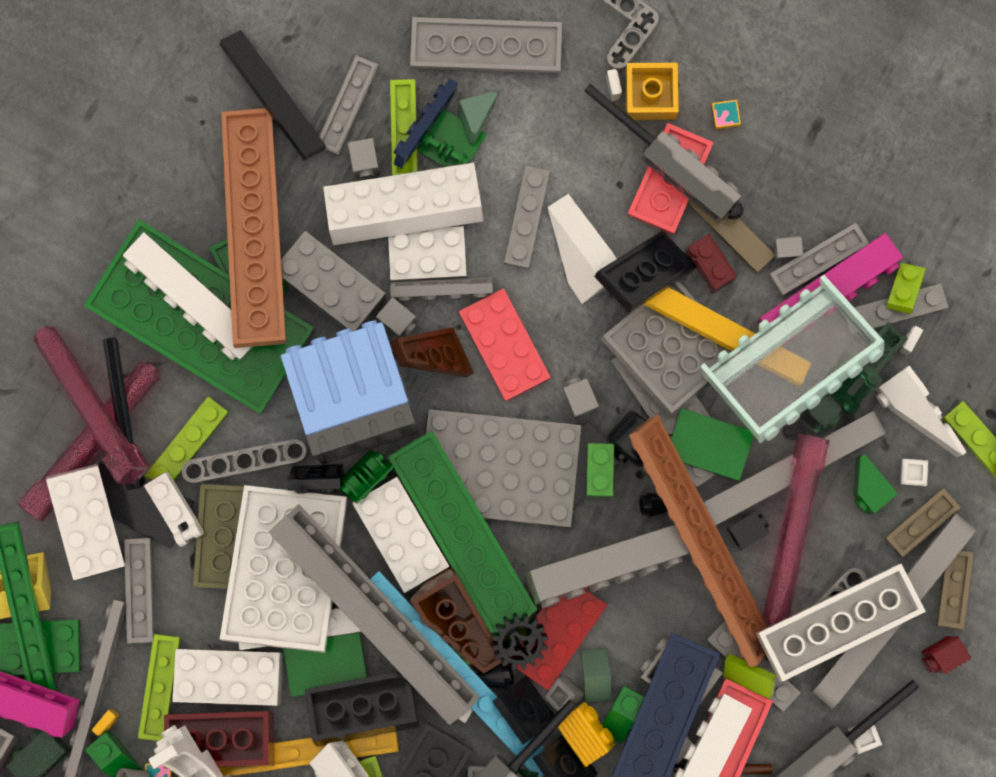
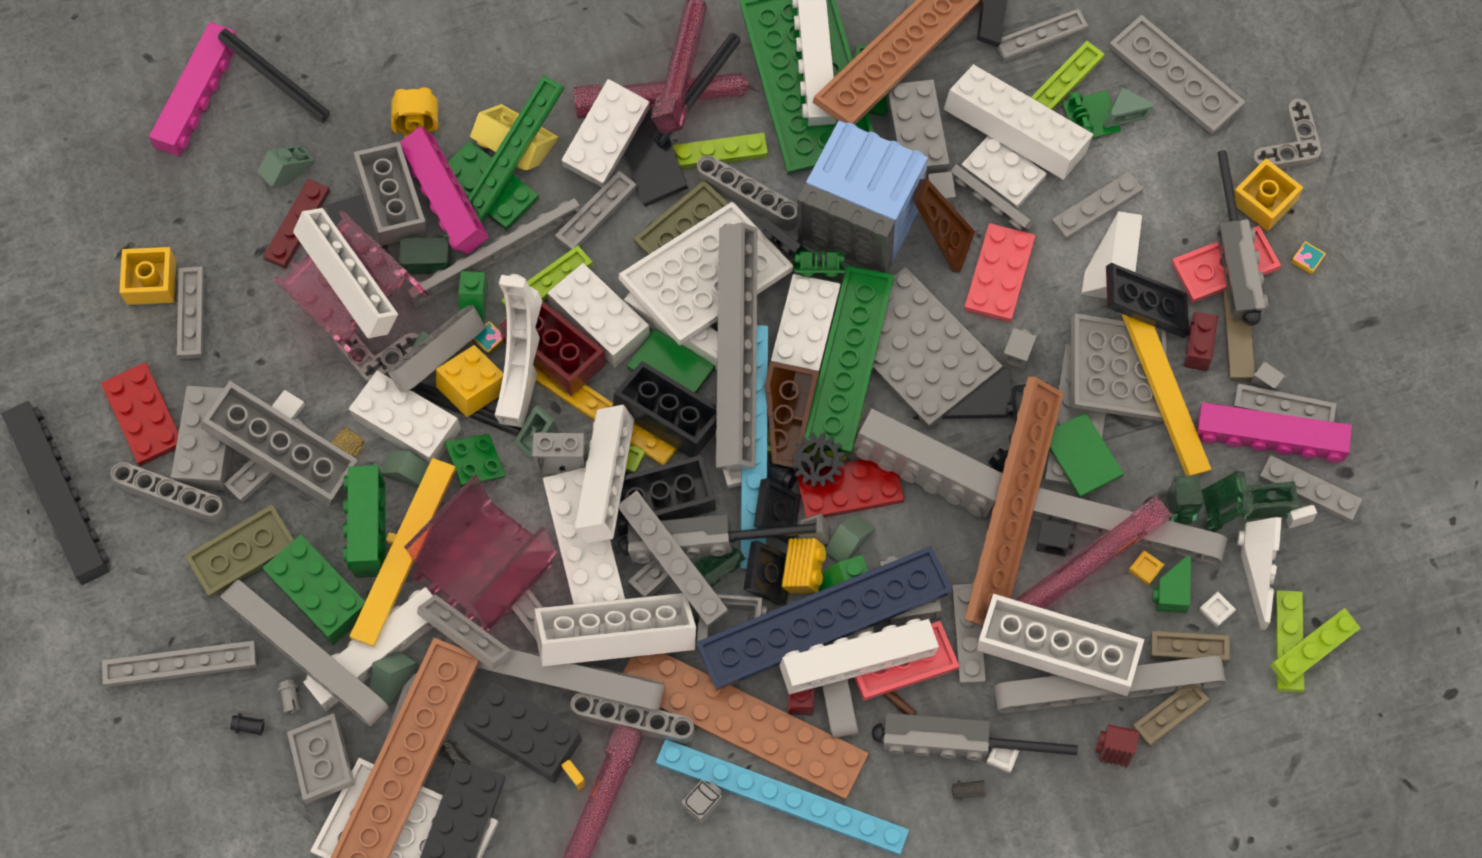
camera: 45 degrees right, 15 degrees down
(106, 722) = (492, 270): yellow tile -> none
(174, 508) = (671, 177): white plate -> none
(364, 158) = (1020, 72): light grey brick -> none
(429, 116) = (1088, 83): dark blue plate -> none
(599, 470) = (985, 402): bright green brick -> none
(613, 85) = (1244, 170): white tile -> none
(752, 677) = (959, 631): lime tile -> none
(794, 360) = (1198, 443): clear window -> none
(833, 487) = (1146, 568): none -> yellow tile
(906, 288) = (1332, 477): lime plate -> none

